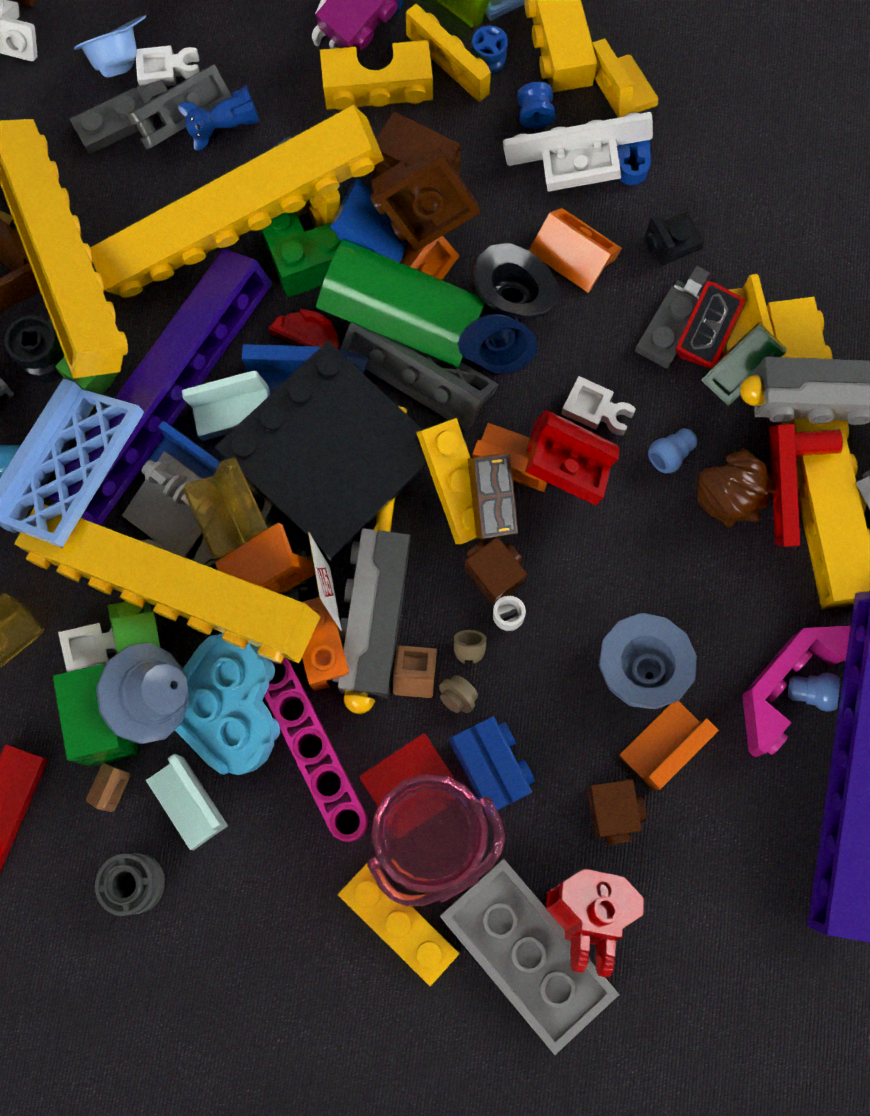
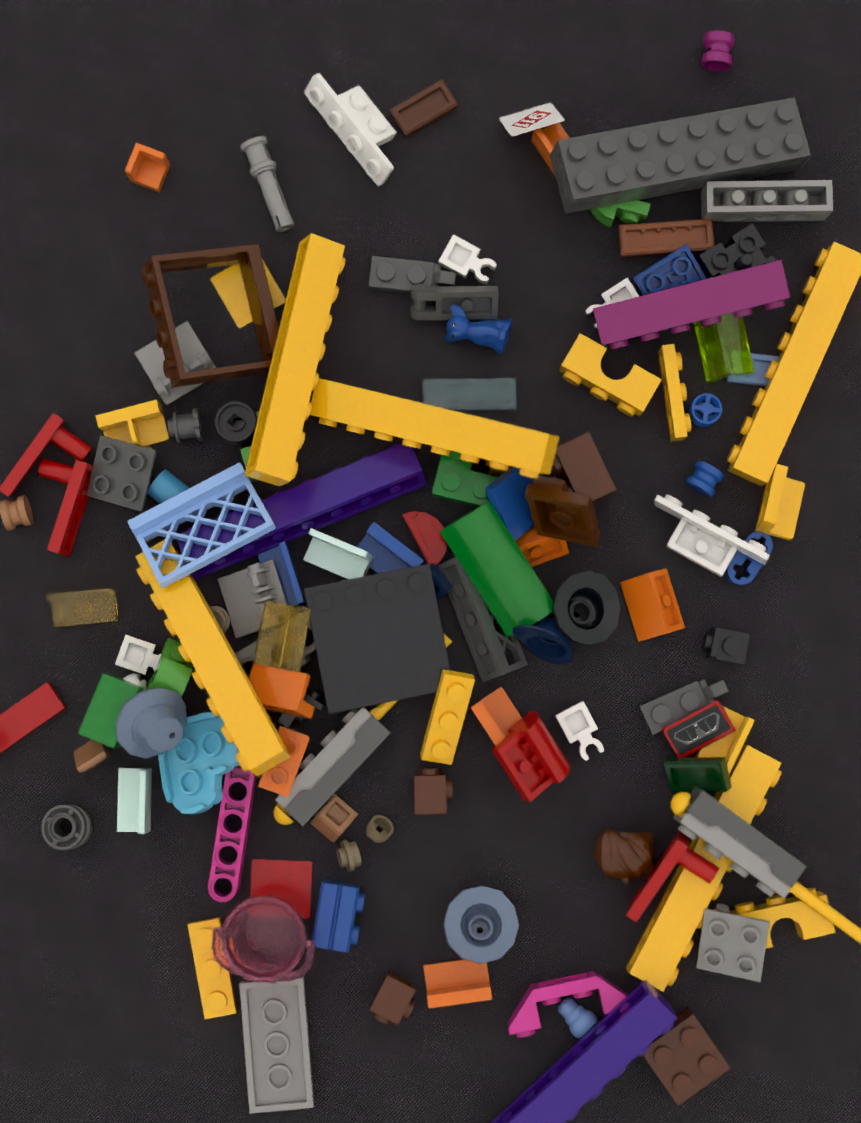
camera: 35 degrees right, 10 degrees up
(114, 51) = (440, 219): light blue piece -> none
(324, 582) = (312, 729): white sticker -> none
(493, 495) = (462, 746): tile -> none
(506, 607) = (420, 820): white hinge -> none
(594, 911) = (334, 1050): hinge -> none
(668, 452) = (606, 795): medium blue piece -> none

